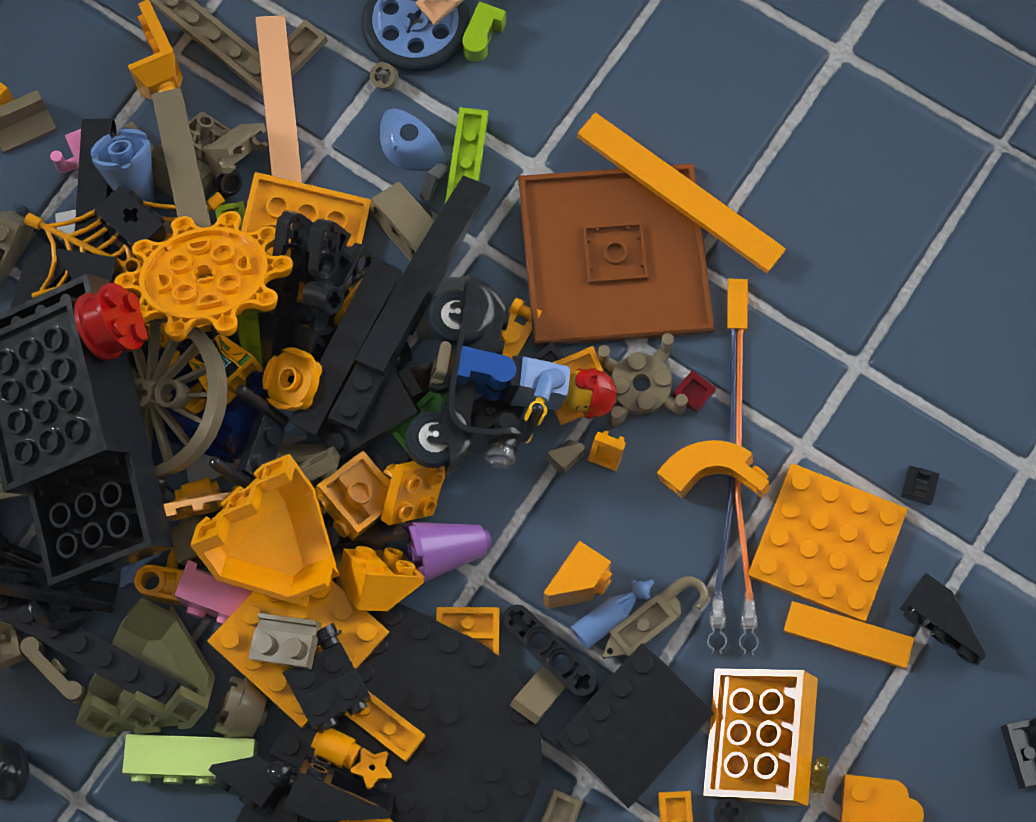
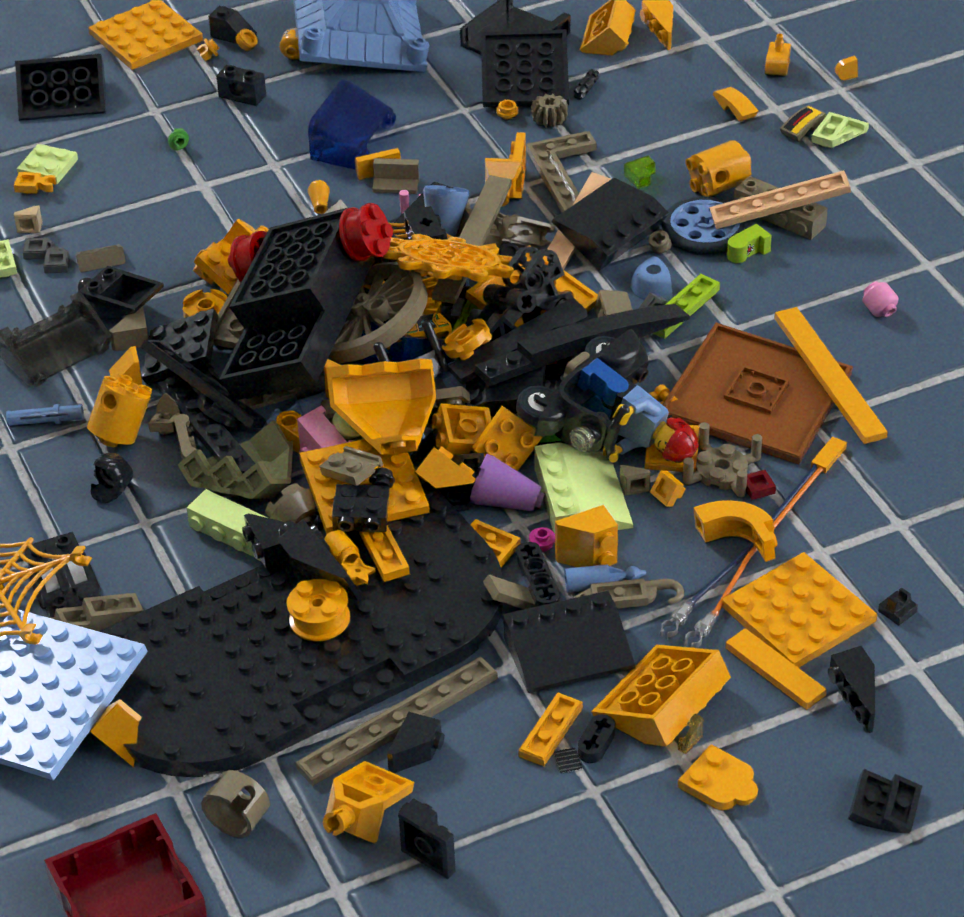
camera: 30 degrees right, 30 degrees down
(317, 79) = (610, 221): none -> black slope
(519, 599) = (543, 537): none -> dark pink plate
(522, 506) = (578, 482): none -> yellowish green slope
(670, 48) = (880, 299): none -> bright pink head

